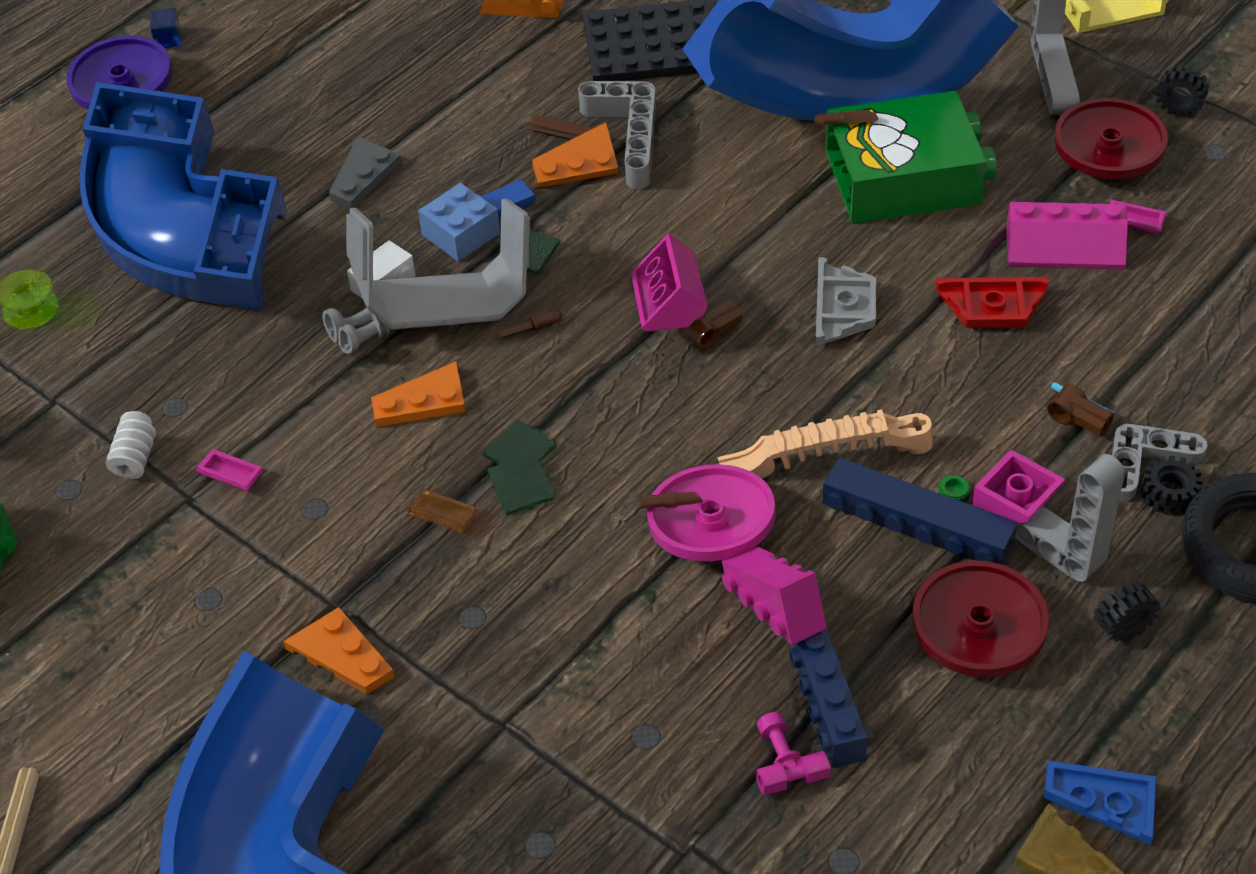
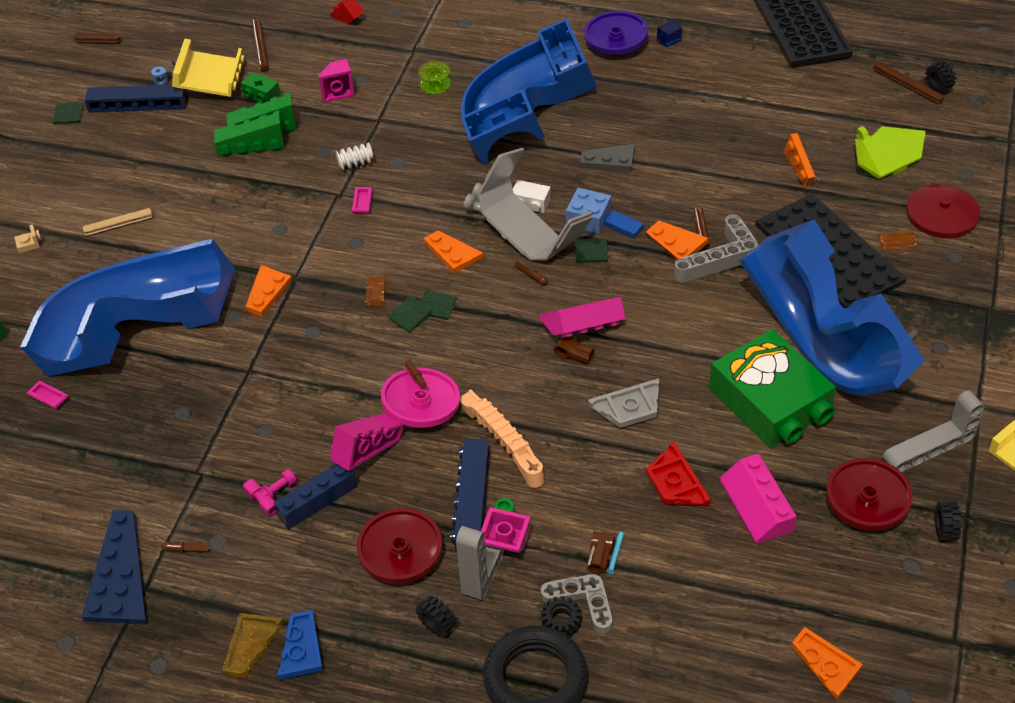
camera: 65 degrees right, 0 degrees up
(856, 116) = (767, 340): reddish brown piece -> none
(1143, 218) = (807, 534): dark pink tile -> none

